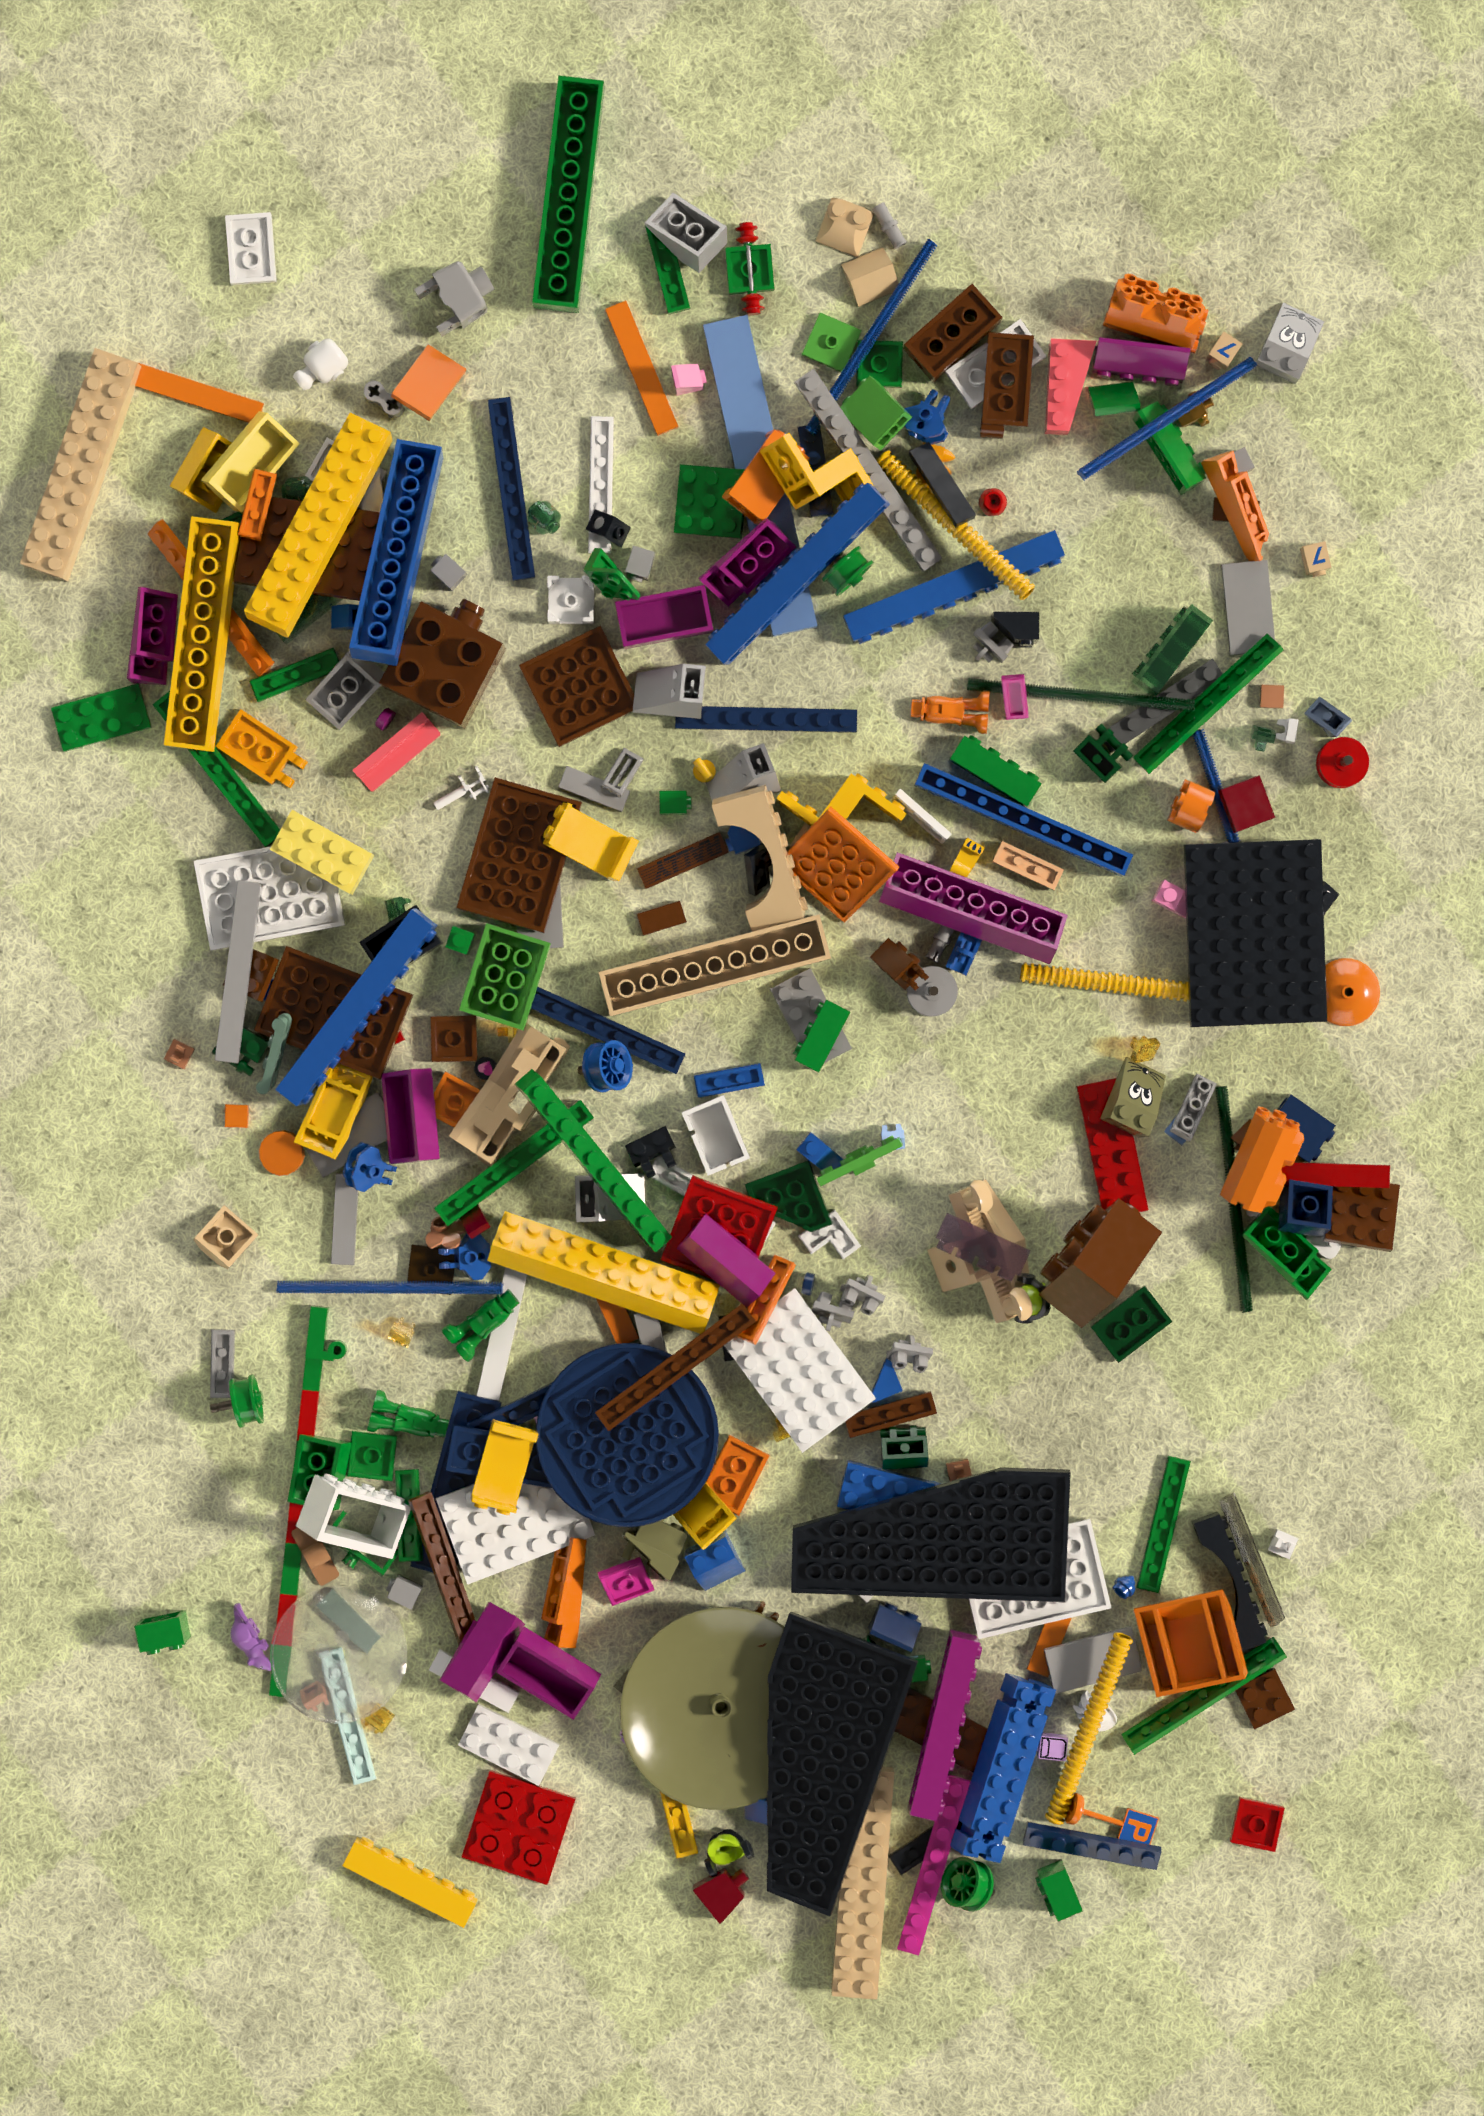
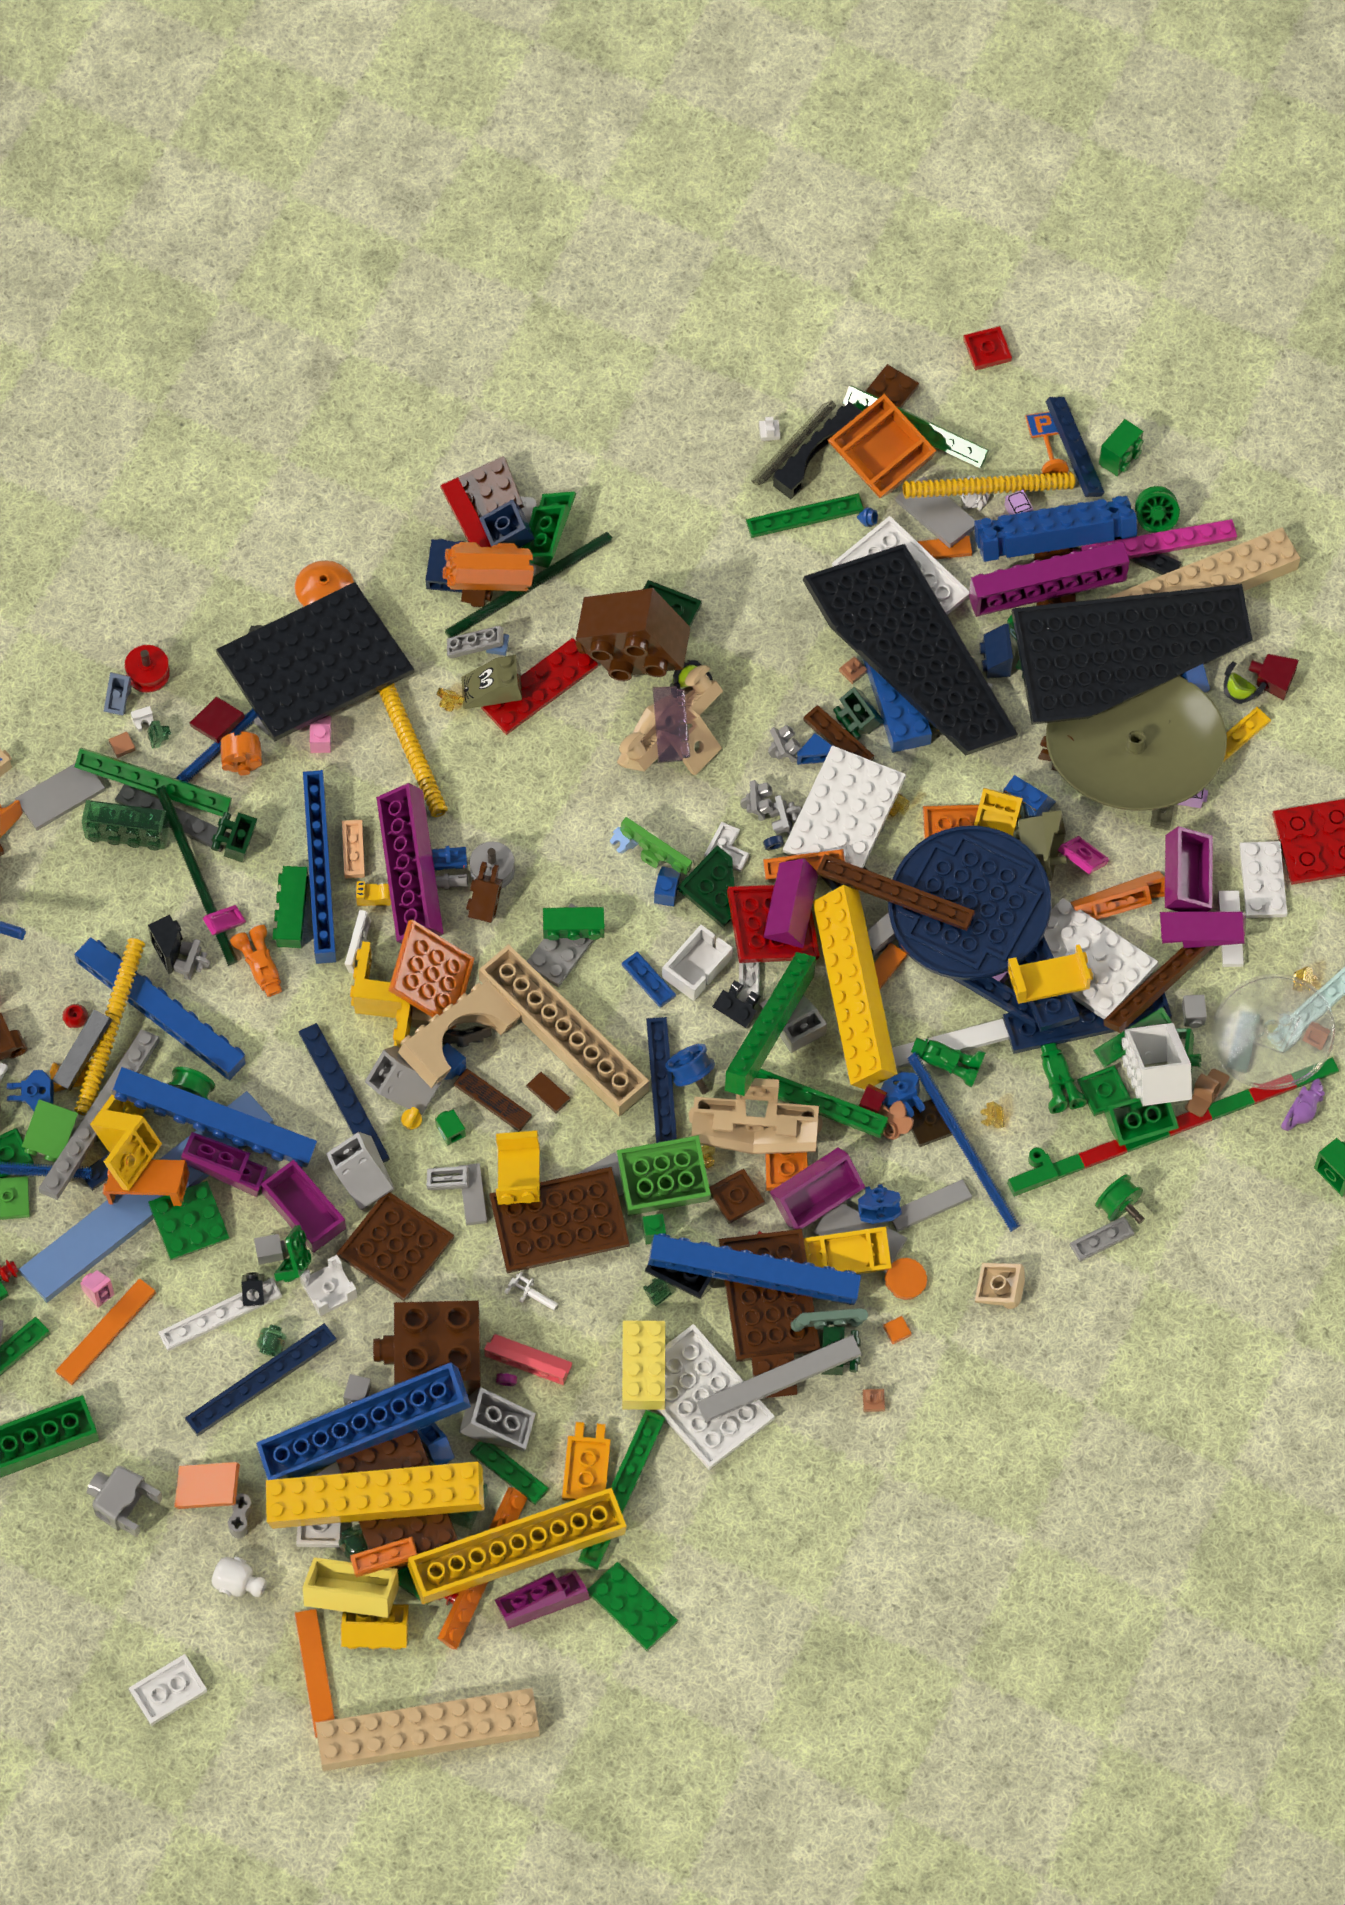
camera: 120 degrees left, 25 degrees down
(484, 1067) = (745, 1161): black tile -> none

